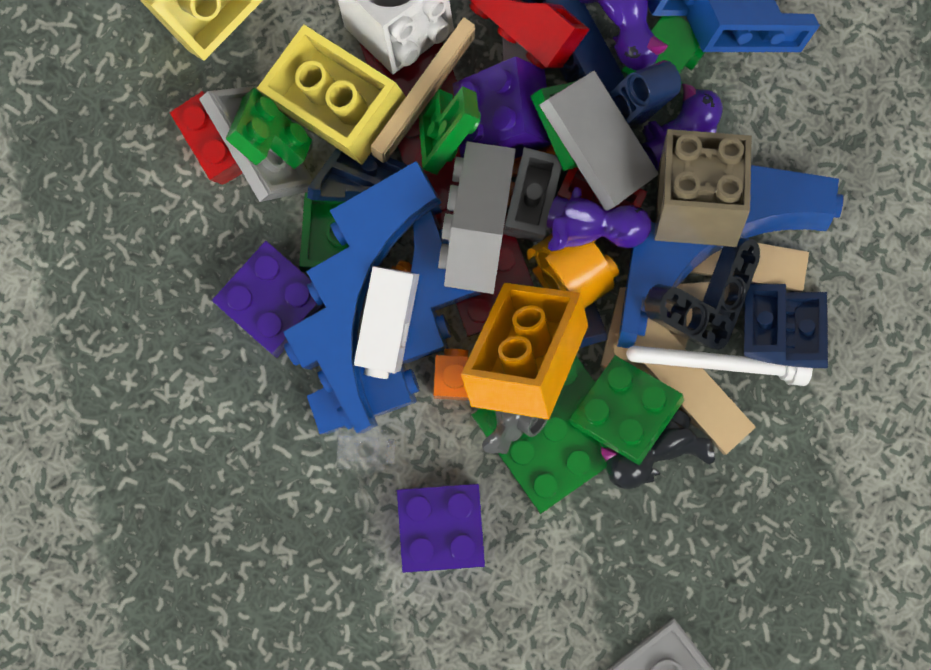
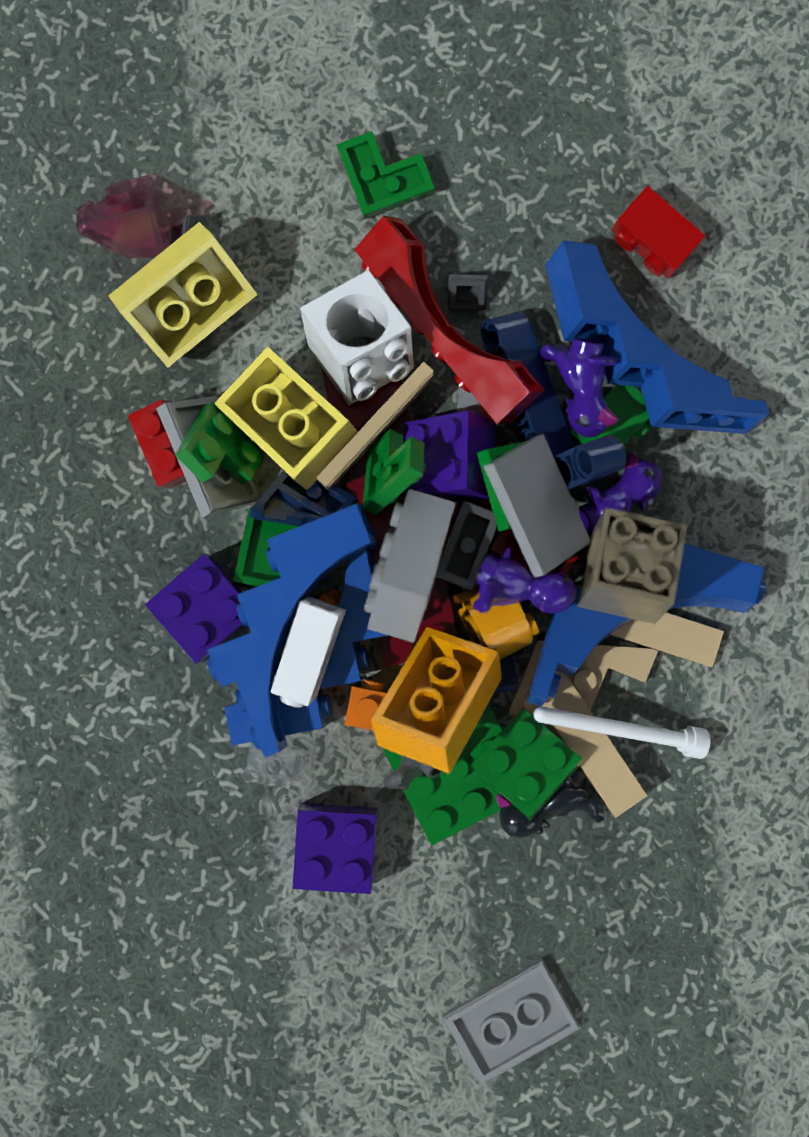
camera: 10 degrees right, 5 degrees up
(712, 310) = (648, 643): black beam -> none
(786, 326) = (691, 701): dark blue slope -> none

